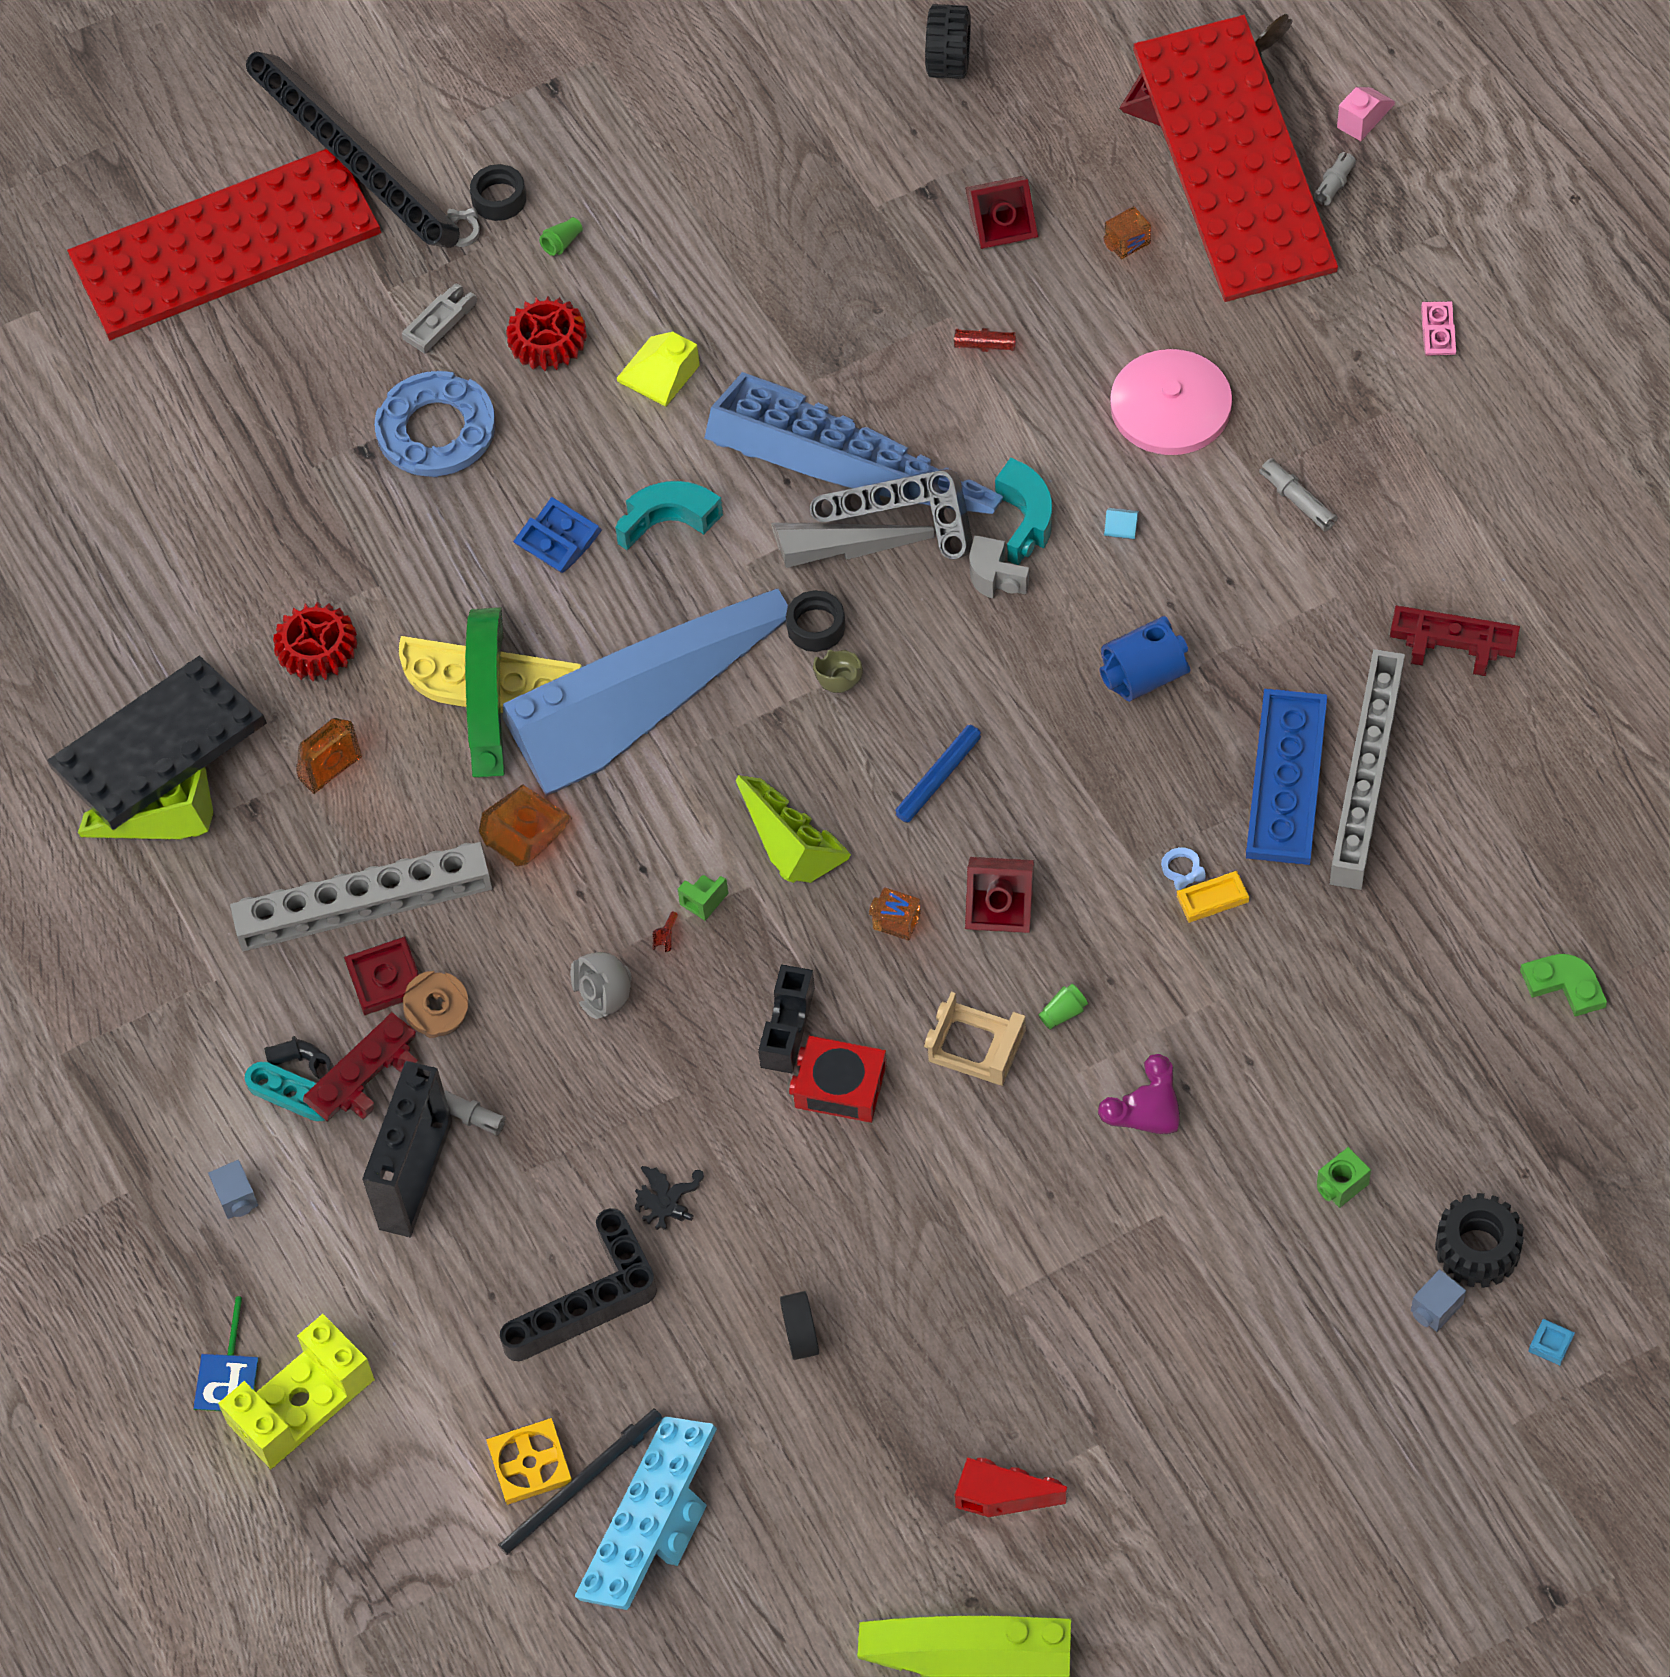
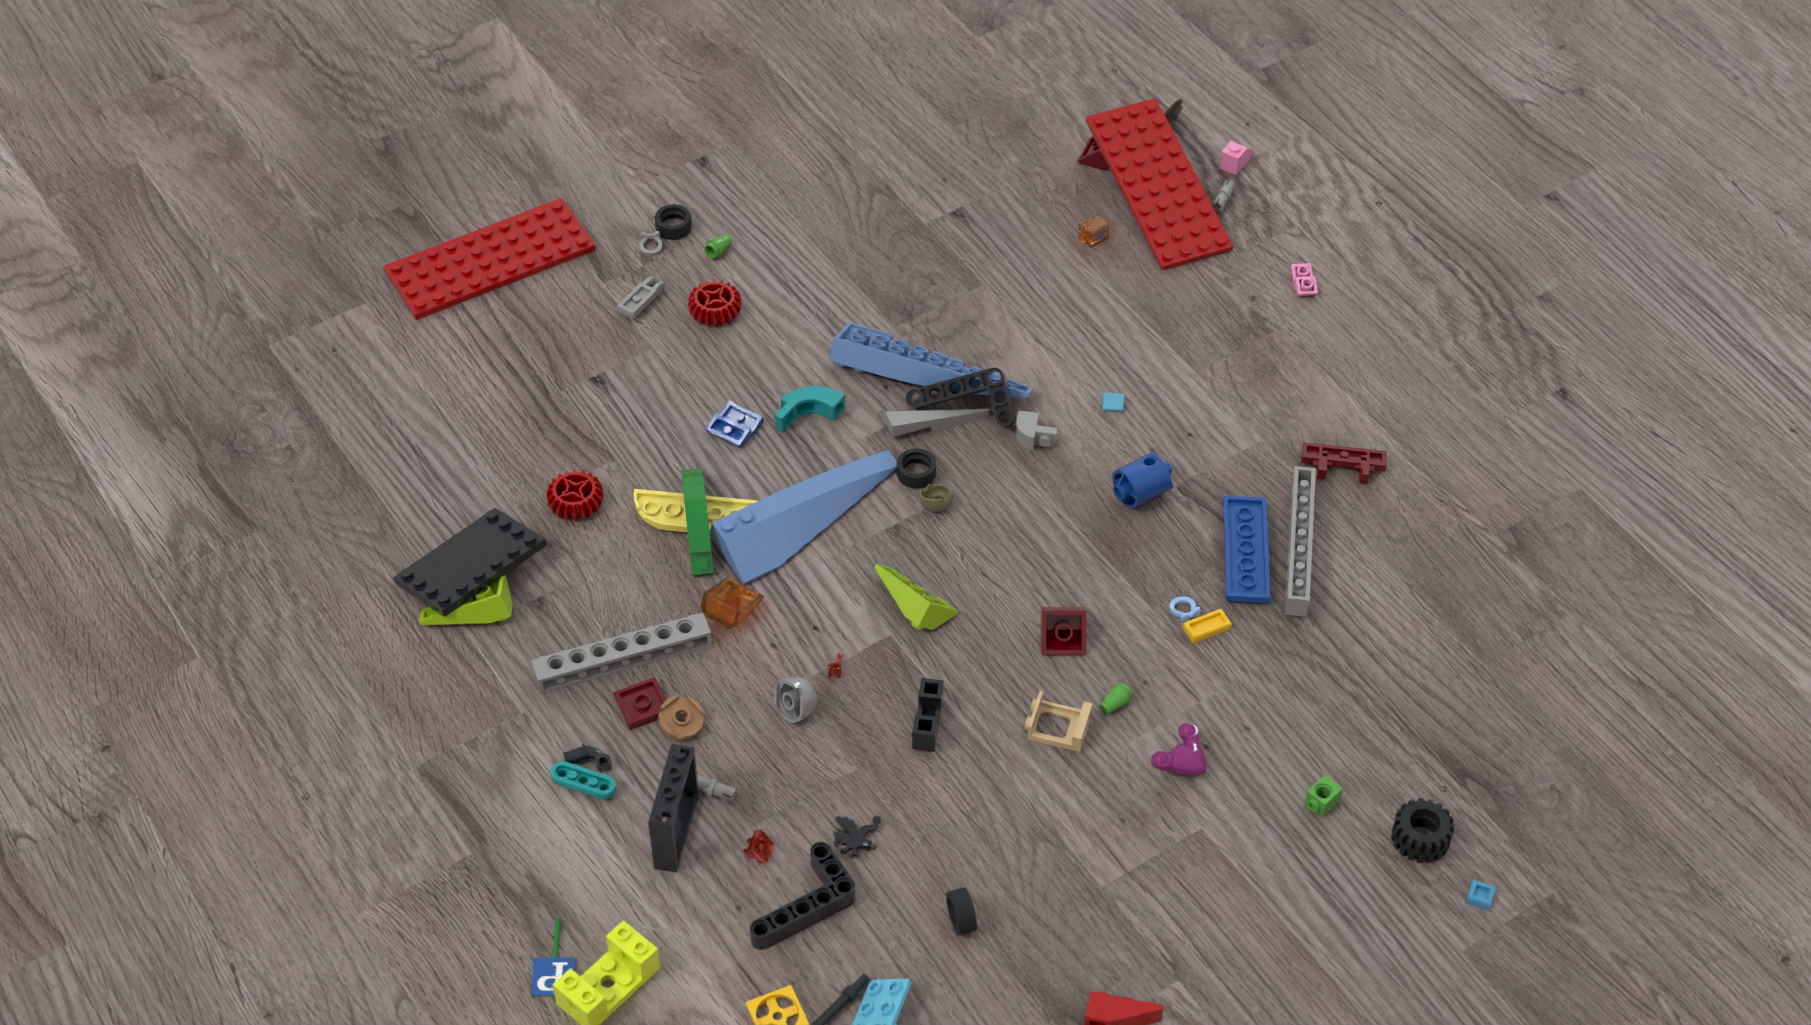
camera: 10 degrees left, 10 degrees down
(233, 1189) = (548, 846): sand blue brick -> none
(327, 753) = (590, 562): clear orange slope -> none
(345, 1082) = (623, 770): dark red hinge -> none
(353, 150) = (574, 199): black beam -> none
(427, 389) = (641, 338): medium blue plate -> none
(528, 1208) = (759, 847): none -> clear red tile
(661, 367) = (794, 320): neon yellow slope -> none
(703, 896) = (859, 641): bright green panel -> none
(838, 1078) = (967, 751): red brick -> none
(895, 913) = (993, 645): clear orange brick -> none
(938, 773) = (1010, 558): blue axle -> none
(947, 41) = (962, 123): black tyre -> none
(985, 339) = (1007, 296): clear red pin -> none
(1002, 211) = (1009, 221): dark red slope -> none
(1030, 494) = (1053, 389): teal arch -> none
(1171, 402) = (1135, 329): bright pink dish -> none
(1303, 499) = (1221, 375): light grey pin -> none
(1437, 1301) = (1400, 871): sand blue brick -> none
(1565, 973) = (1454, 662): bright green plate -> none

